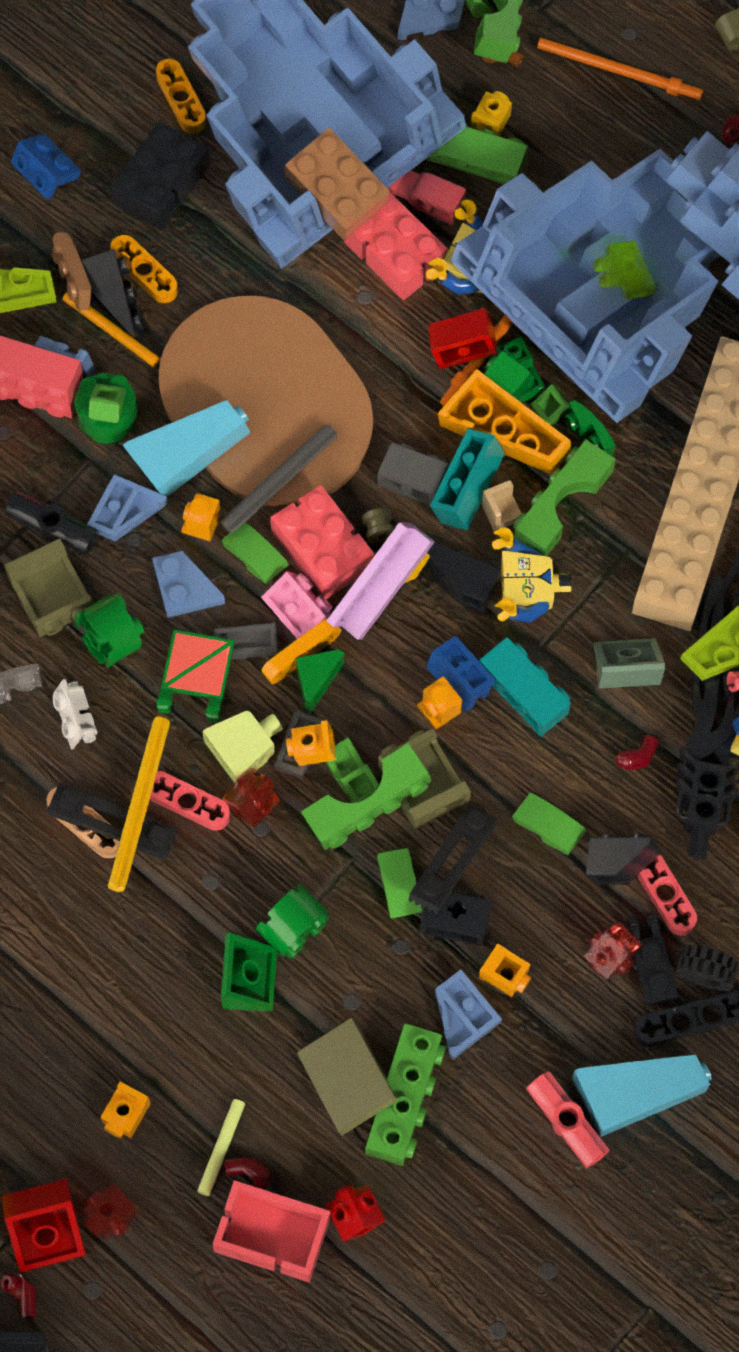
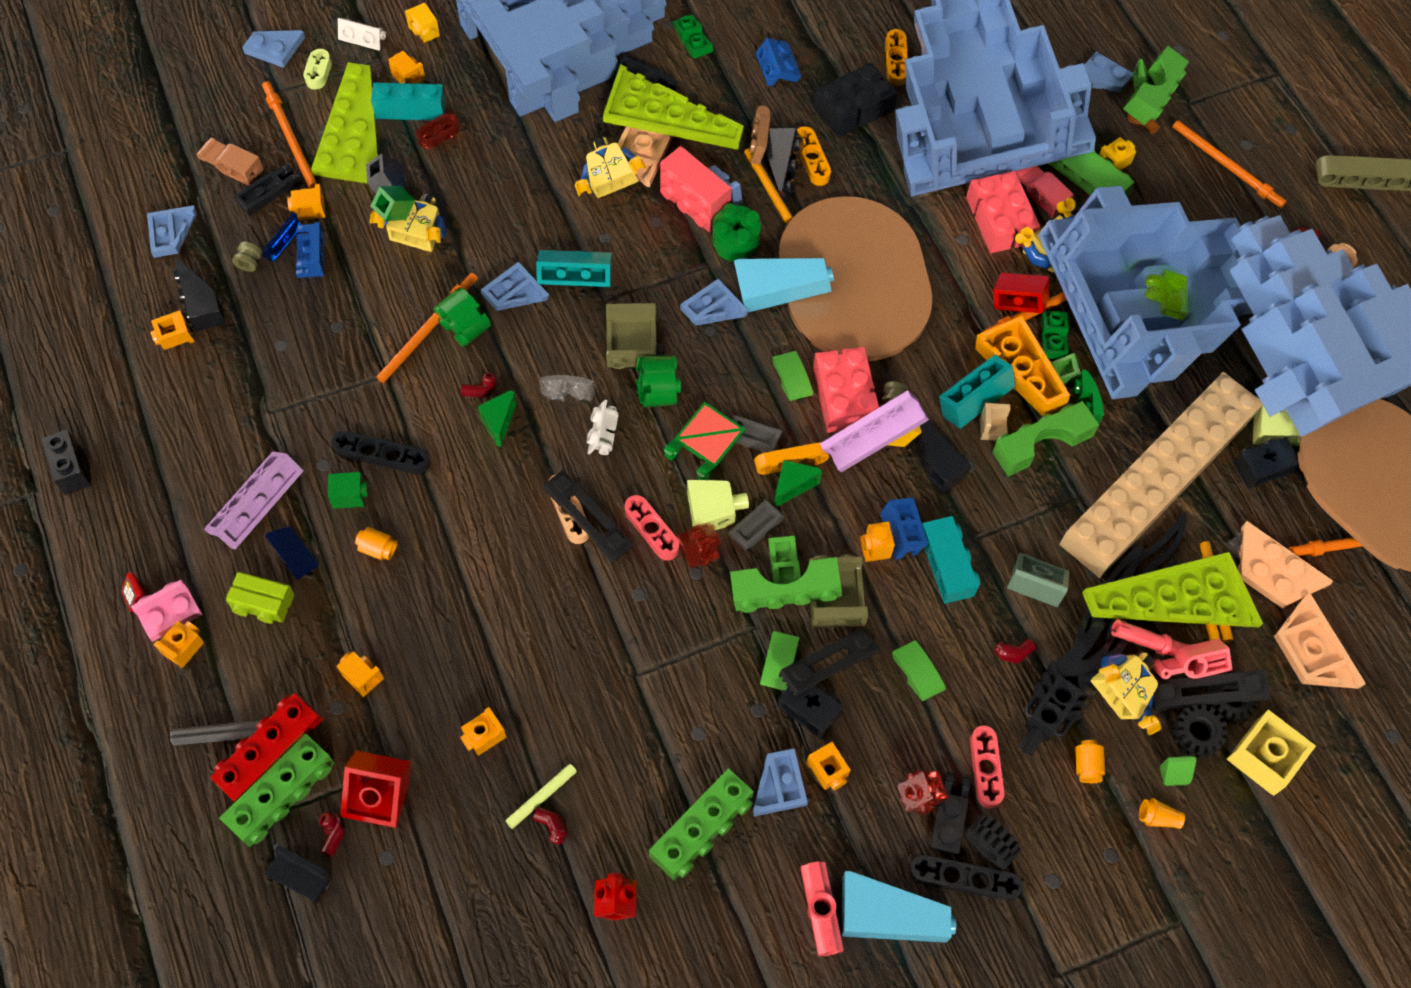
camera: 25 degrees right, 5 degrees down
(35, 515) = (649, 283): black piece -> none
(106, 403) = (735, 225): bright green slope -> none
(109, 1201) = (428, 803): clear red brick -> none
(139, 804) = (612, 512): yellow axle -> none
(184, 585) = (729, 377): medium blue wing -> none
(201, 517) = (765, 330): light orange brick -> none
(248, 974) = (628, 674): green slope -> none
(271, 1231) = (542, 880): coral piece -> none
(279, 478) = (836, 331): dark grey axle -> none
(293, 921) = (682, 649): green brick -> none
(297, 603) = (805, 422): bright pink bracket -> none
(320, 750) = (764, 527): light orange brick -> none
(339, 181) = (981, 145): medium nougat brick -> none
(347, 1076) = (663, 788): olive tile -> none
(411, 473) = (936, 369): dark grey brick -> none
(509, 374) = (1045, 331): green brick -> none
(526, 580) = (988, 482): torso -> none
(619, 859) = (962, 723): black slope -> none

